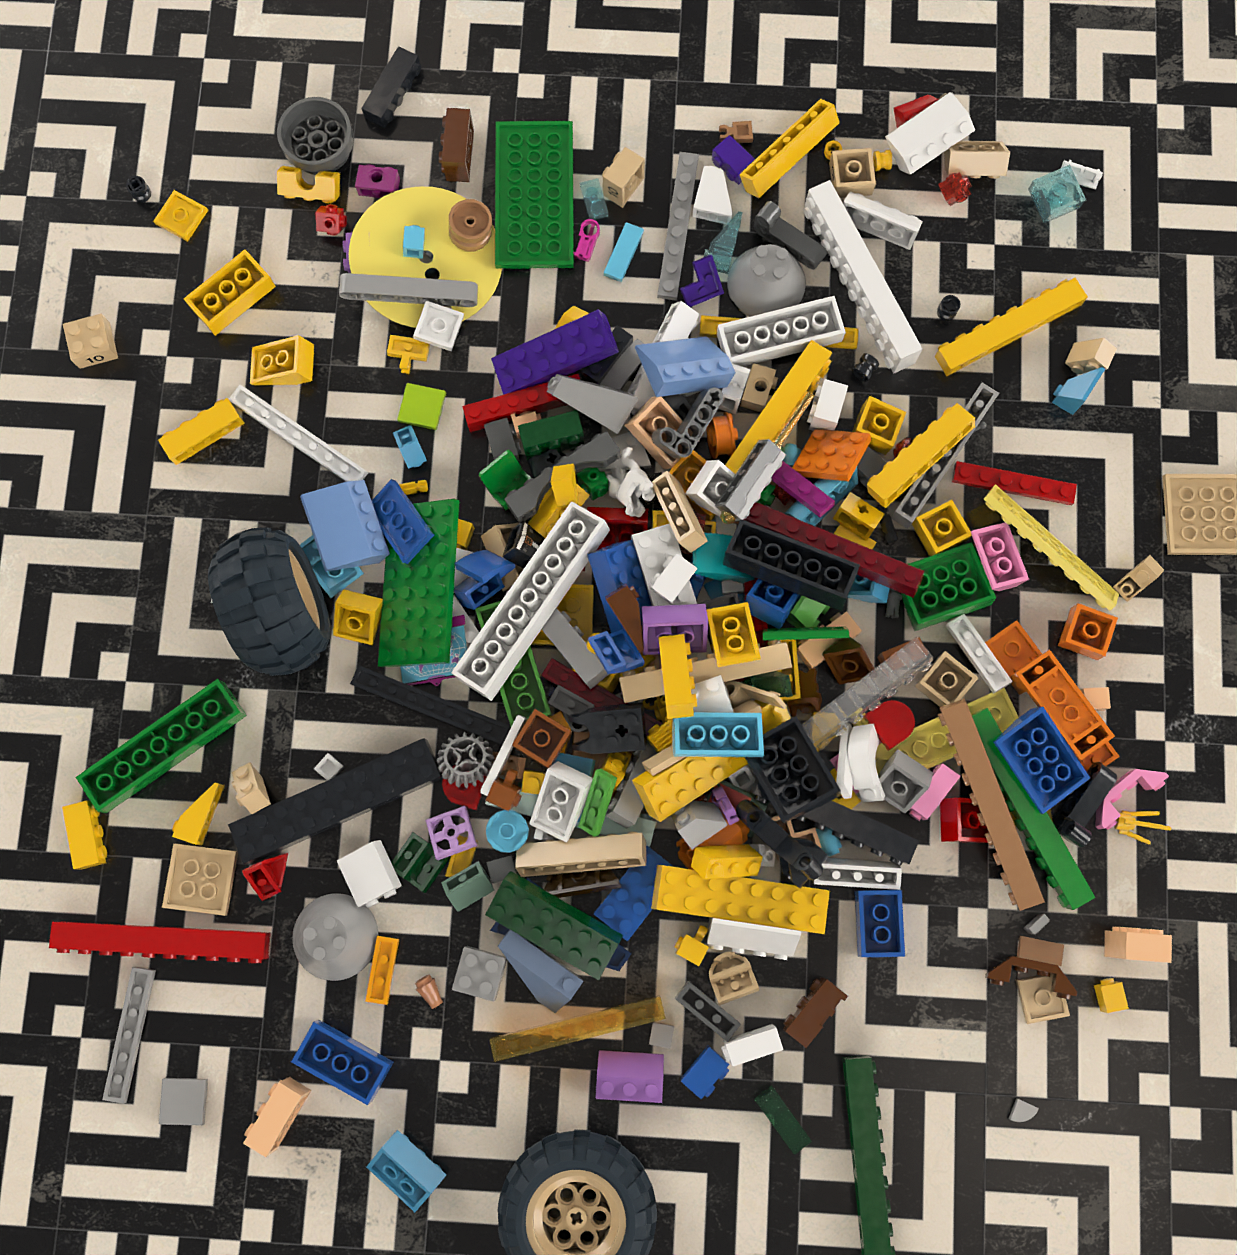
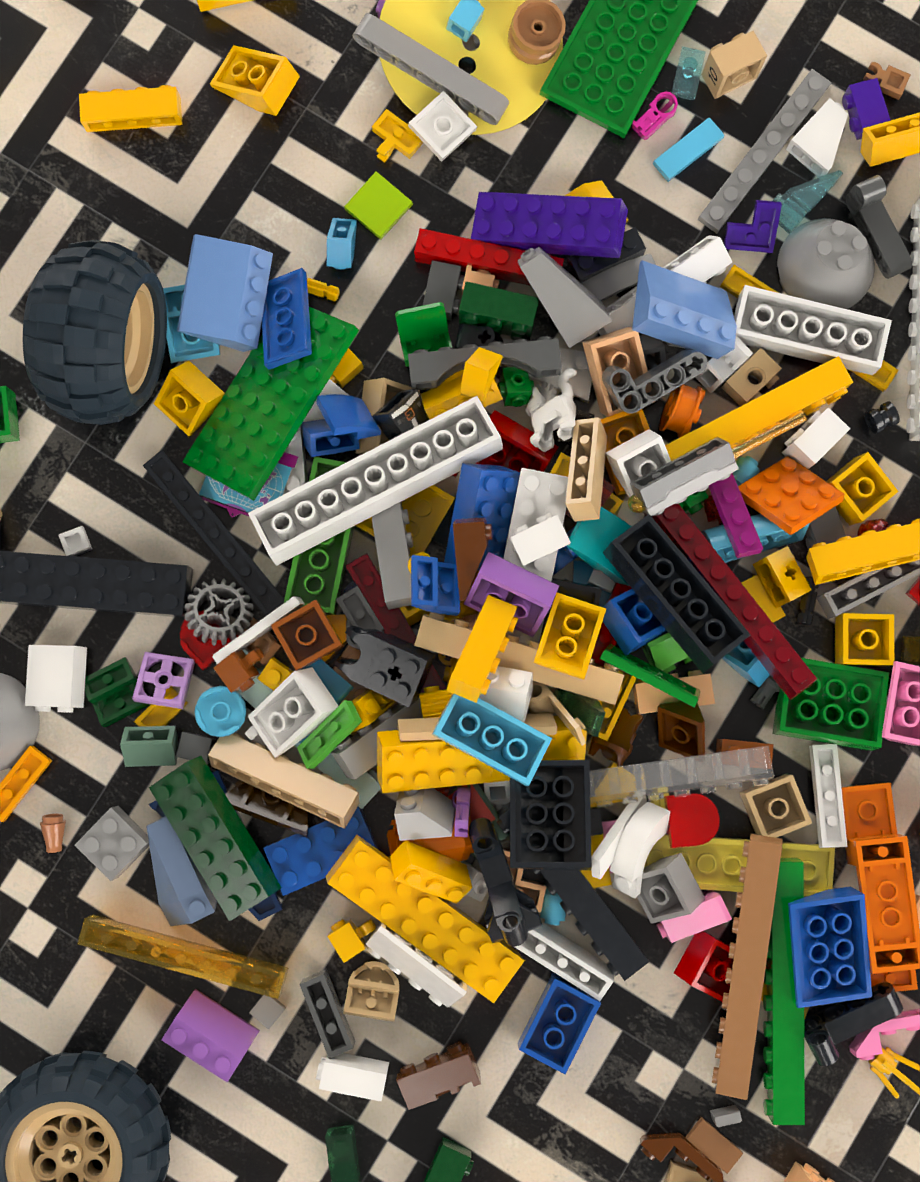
camera: 25 degrees right, 5 degrees up
(296, 435) = (229, 167): white tile -> none
(705, 1072) = (290, 1074): blue brick -> none

